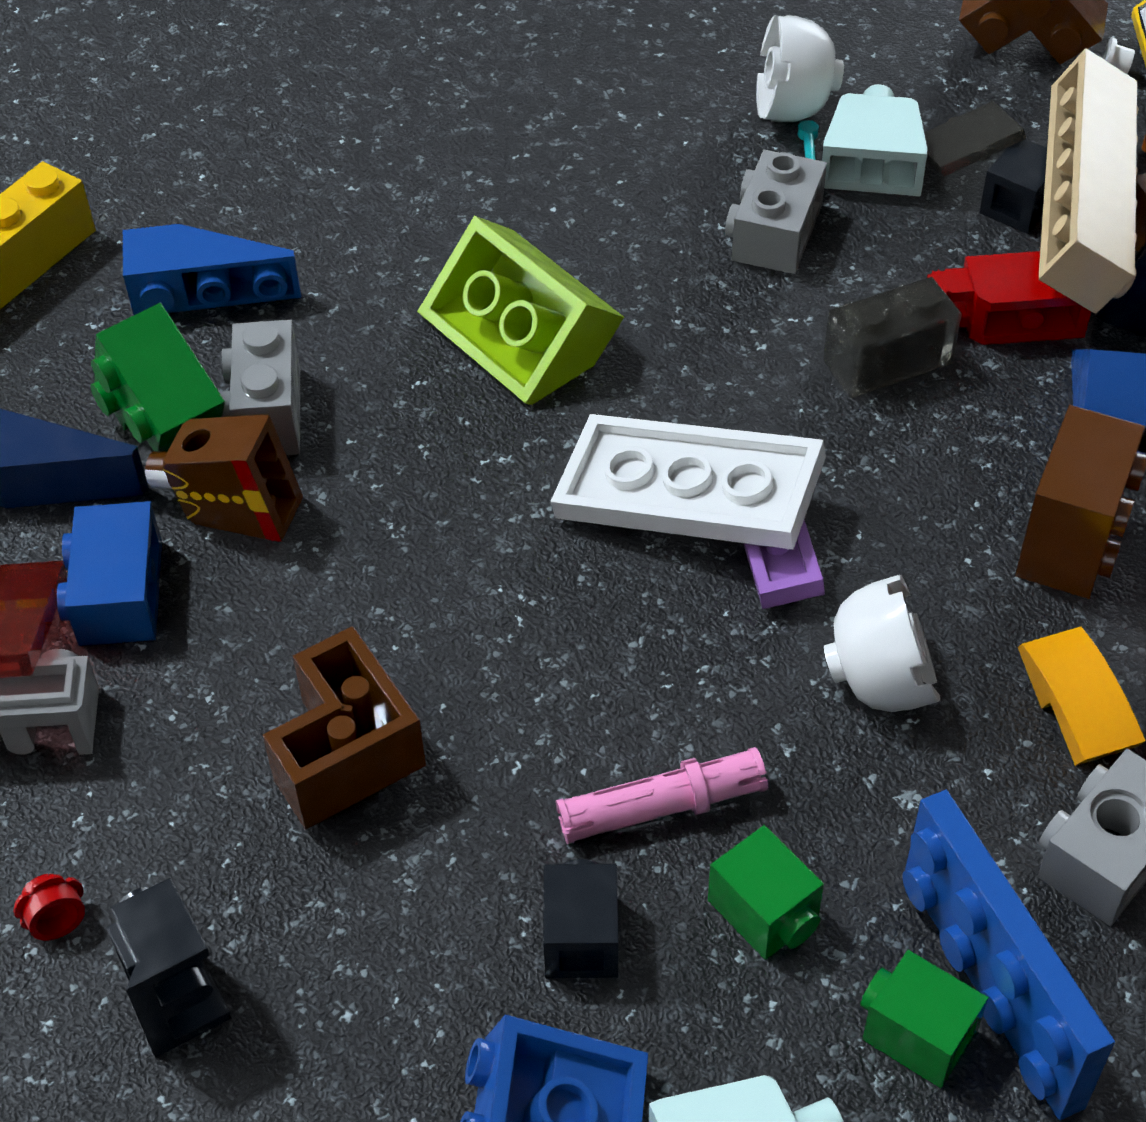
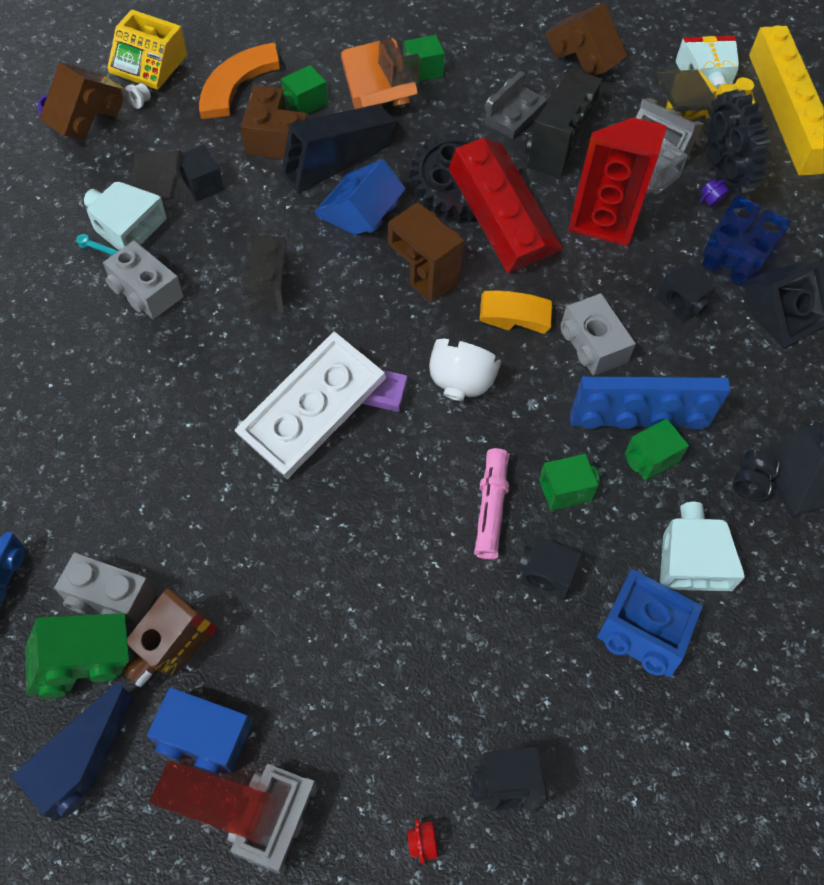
camera: 70 degrees left, 10 degrees up
(351, 738) = (392, 625): reddish brown brick -> none
(518, 312) = (130, 435): lime slope -> none
(797, 70) = (46, 221): white cylinder -> none
(1008, 303) = (274, 208): red hinge -> none
(1090, 184) = (236, 142): tan brick -> none

